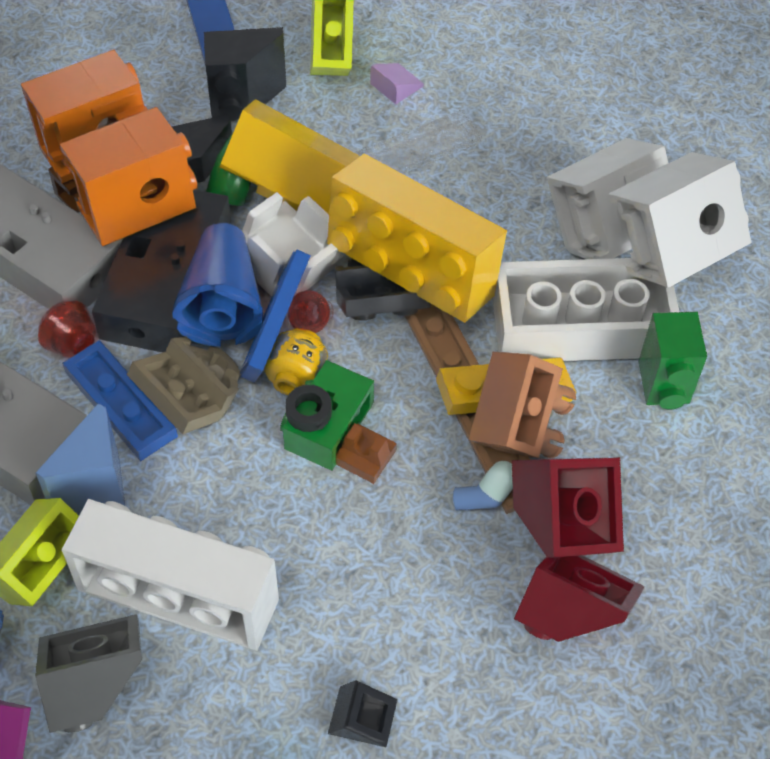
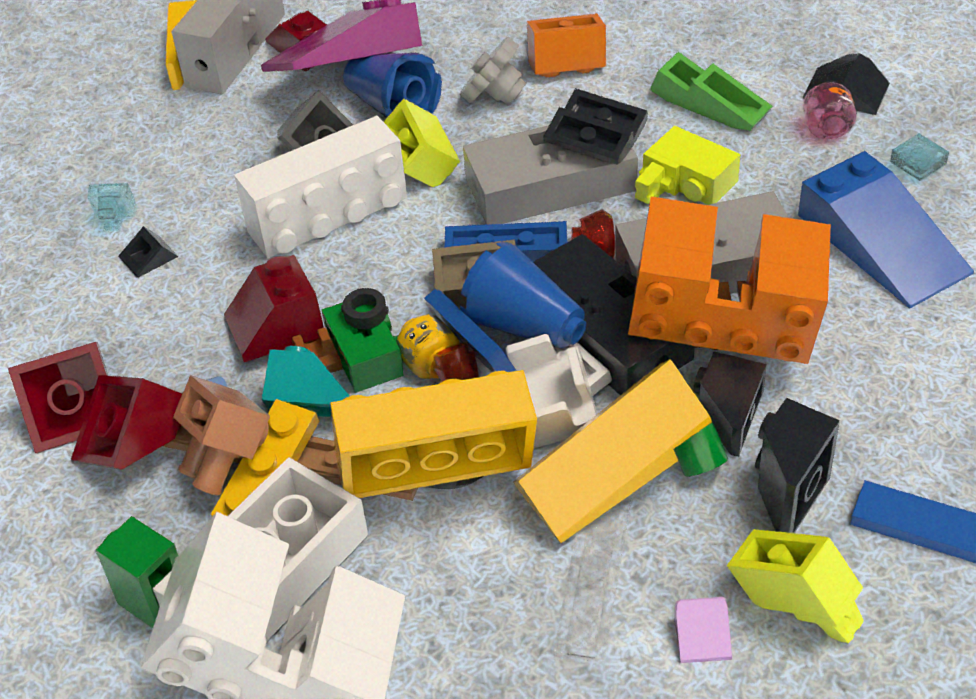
camera: 135 degrees right, 10 degrees down
(85, 465) = (443, 182): medium blue slope -> none
(356, 503) = (273, 308): none -> dark red slope
(415, 413) = (301, 380): none -> teal slope

